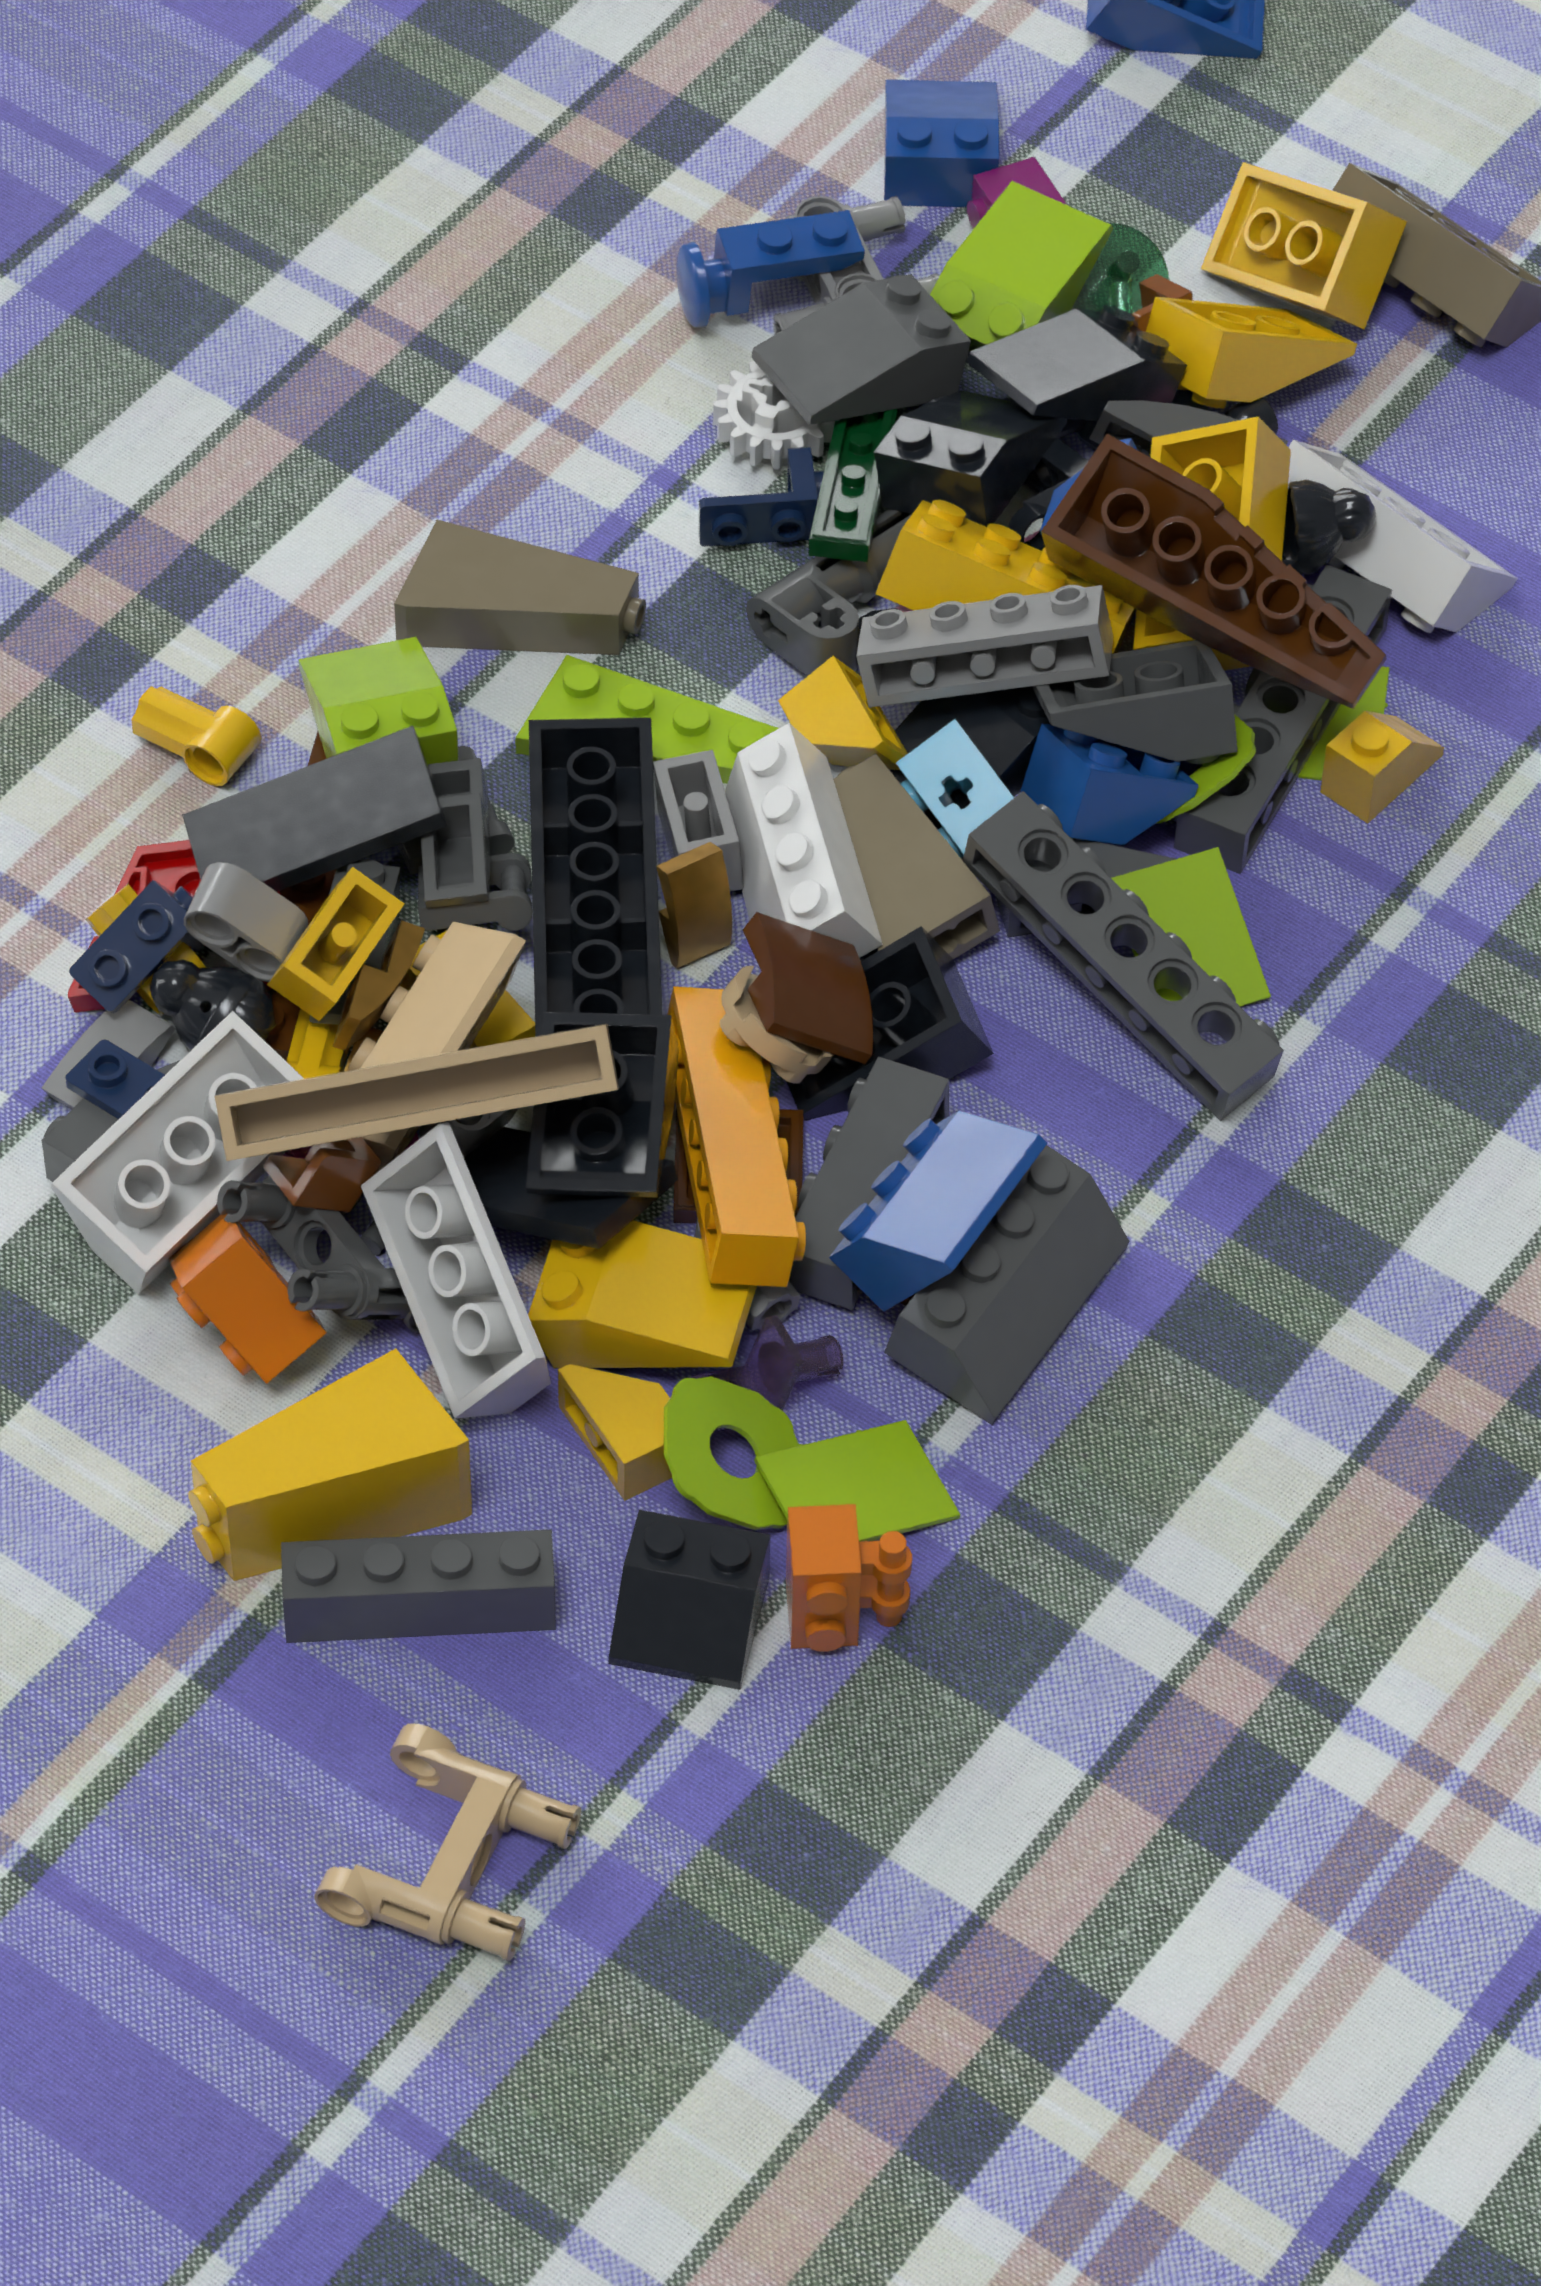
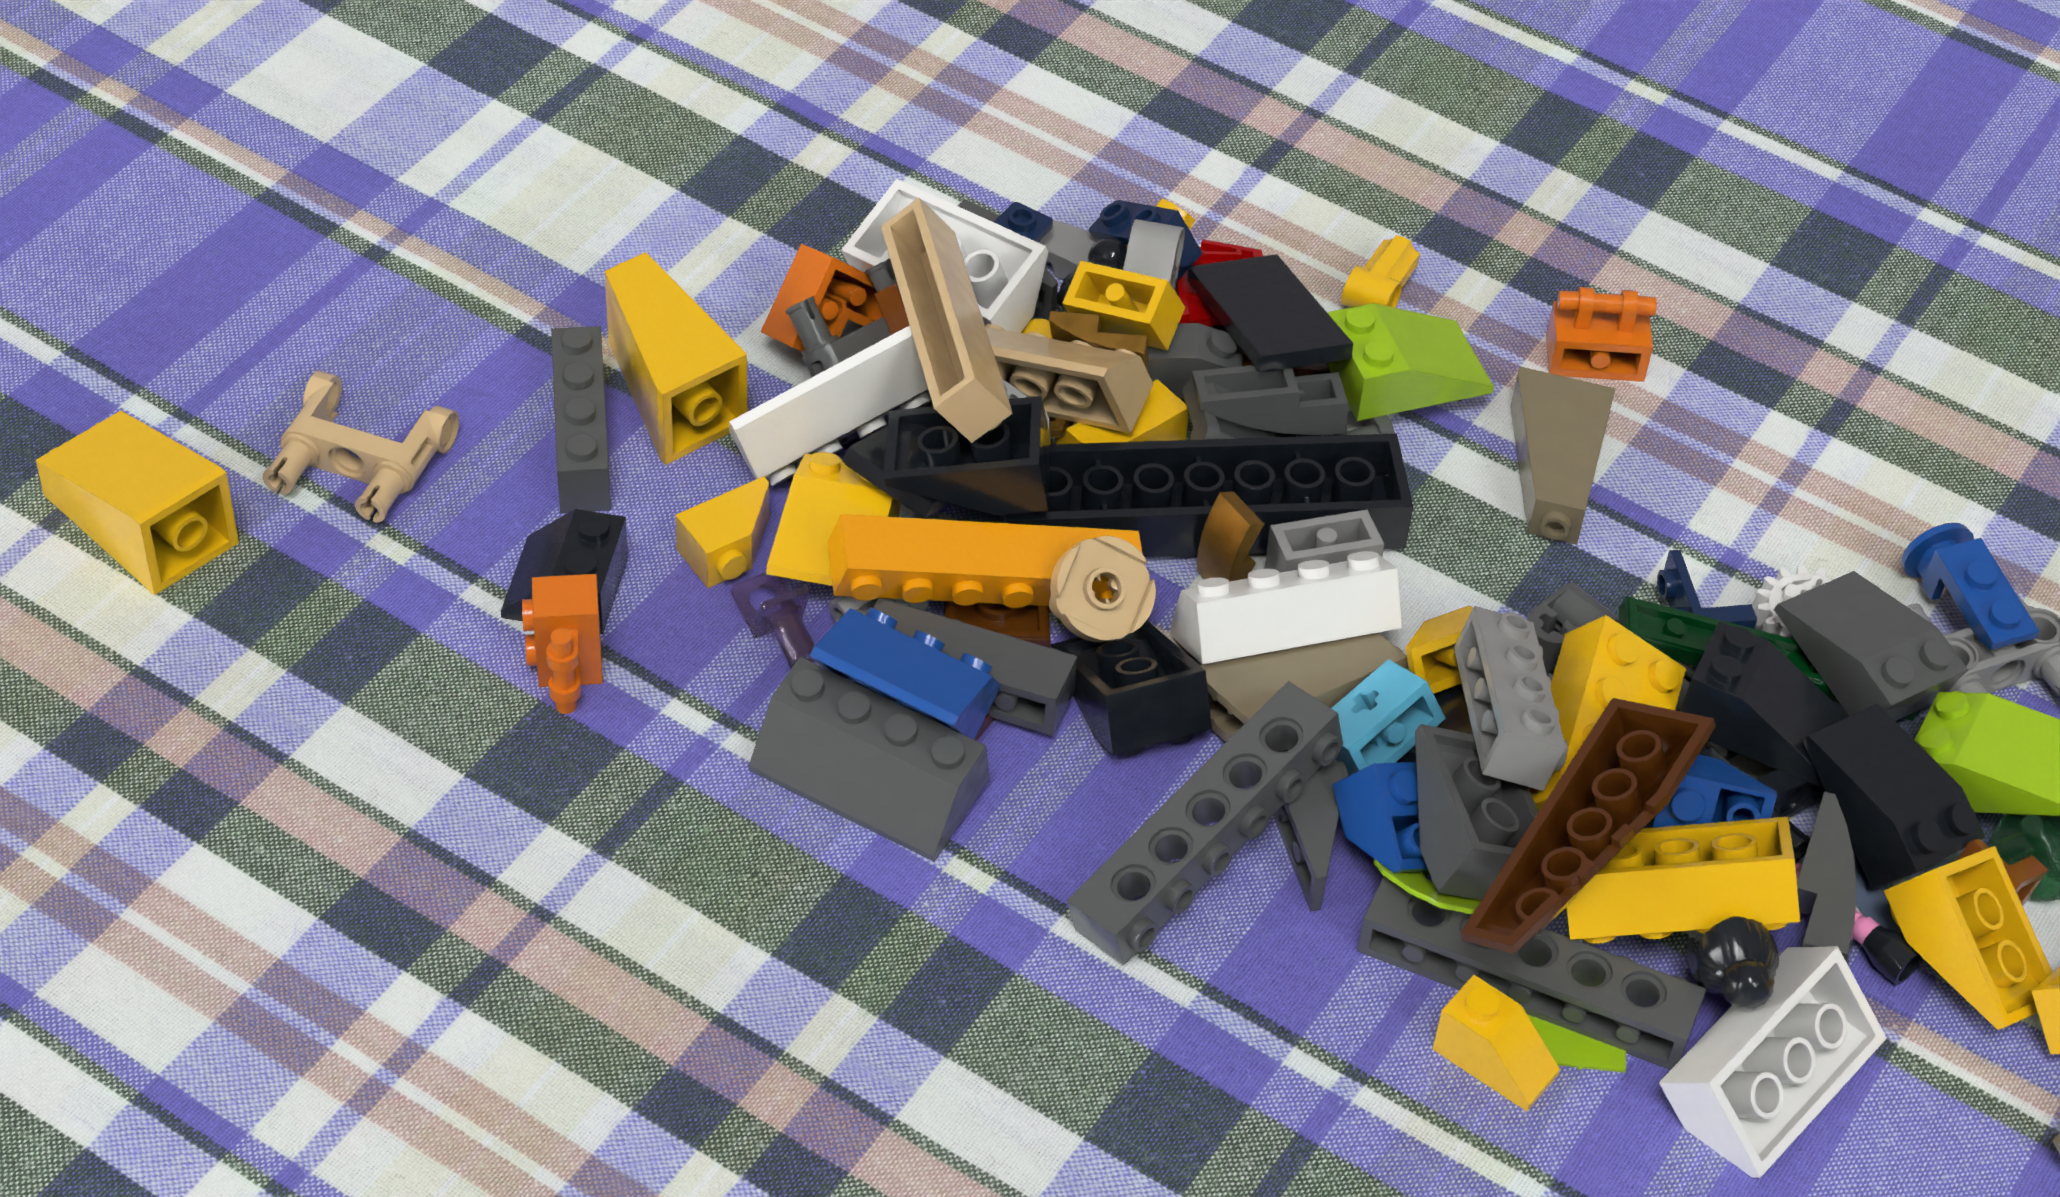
camera: 85 degrees right, 5 degrees down
(323, 532) = (1600, 335): none -> orange brick
(554, 2089) = (142, 499): none -> yellow slope
(678, 721) = (1445, 539): lime wing -> none
(690, 1419) = (687, 630): lime piece -> none
(810, 988) = (1127, 596): reddish brown slope -> none
(874, 1468) = (676, 675): lime window -> none
(1199, 905) = (1260, 891): lime window -> none

